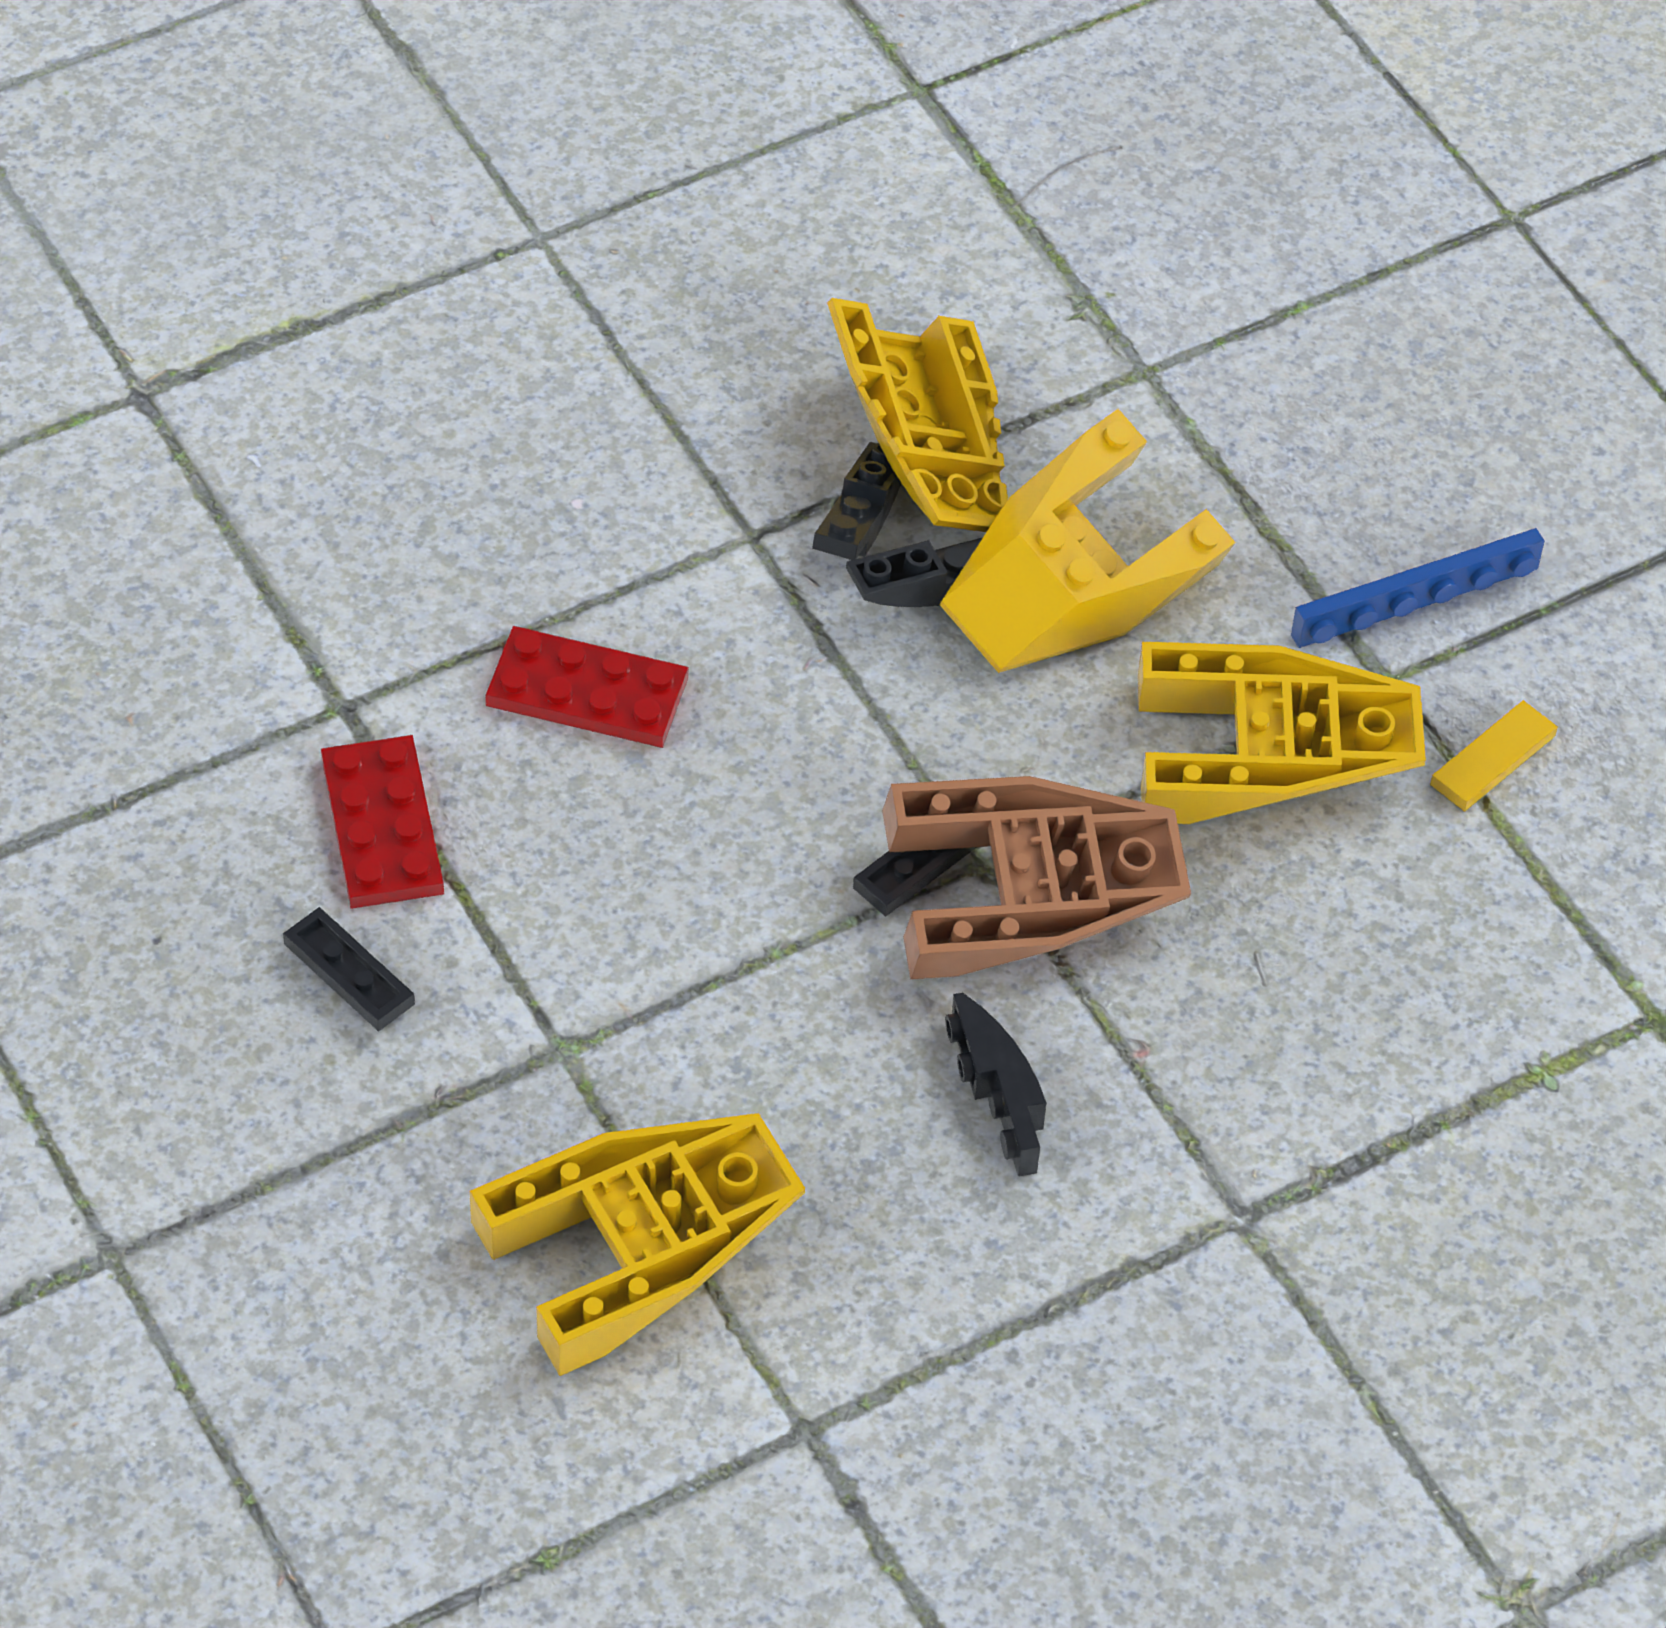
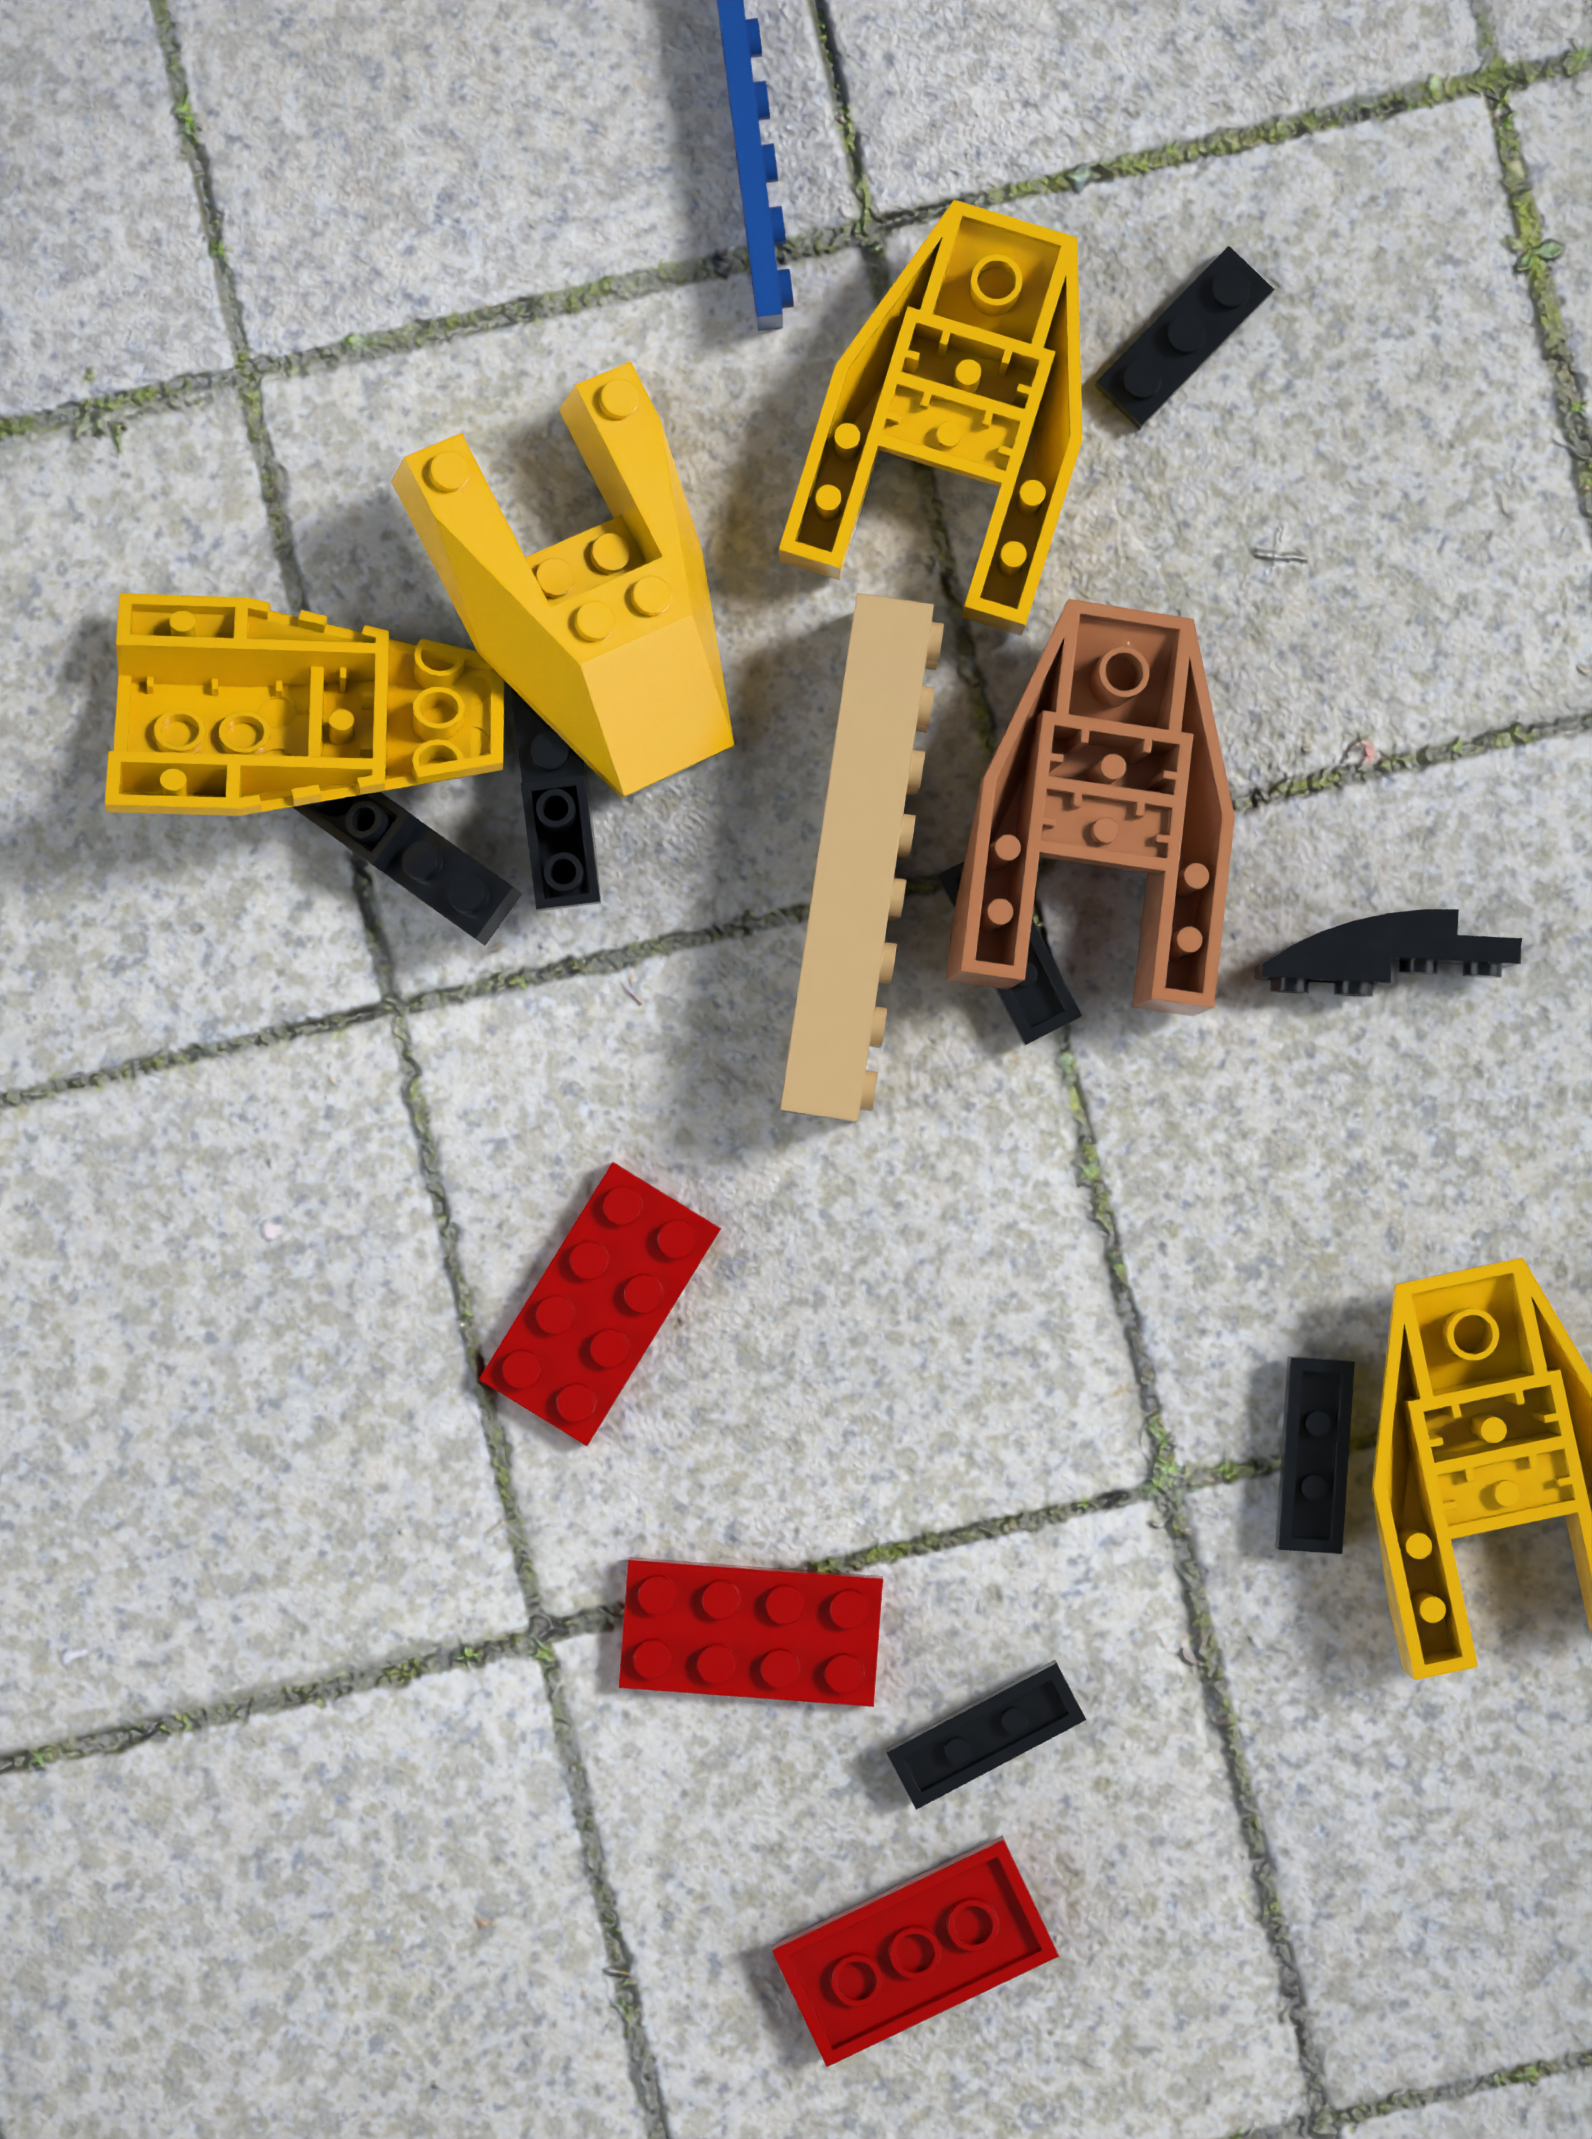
camera: 70 degrees left, 35 degrees up
(178, 961) = (914, 1951): none -> red plate
(580, 1122) = (1314, 1455): none -> black plate
(1013, 730) = (858, 856): none -> tan brick
(1390, 871) = (1184, 337): none -> black plate
(1493, 755) = (1038, 133): yellow tile -> none

